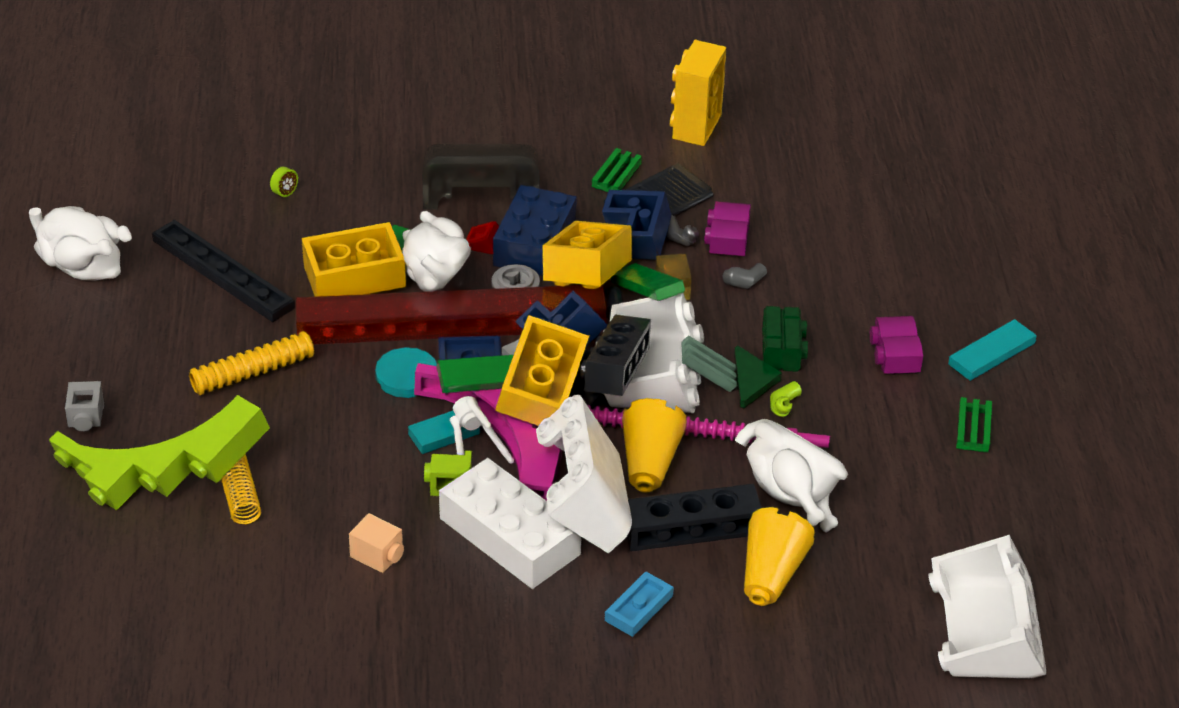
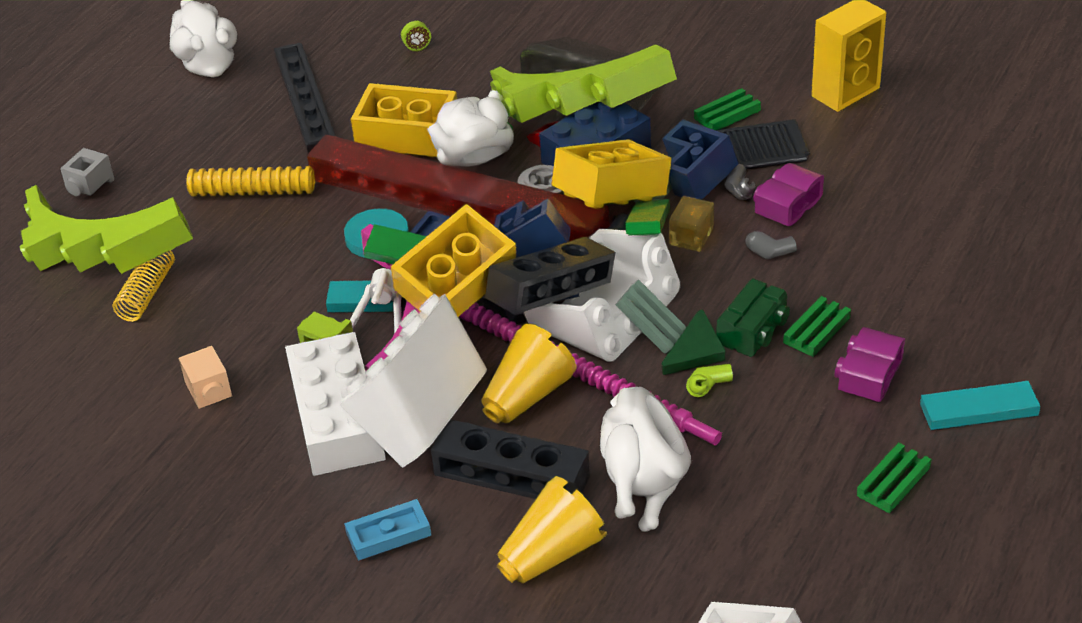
camera: 35 degrees right, 0 degrees up
(499, 192) = (573, 90): none -> lime arch
(832, 314) = (811, 323): none -> green tile

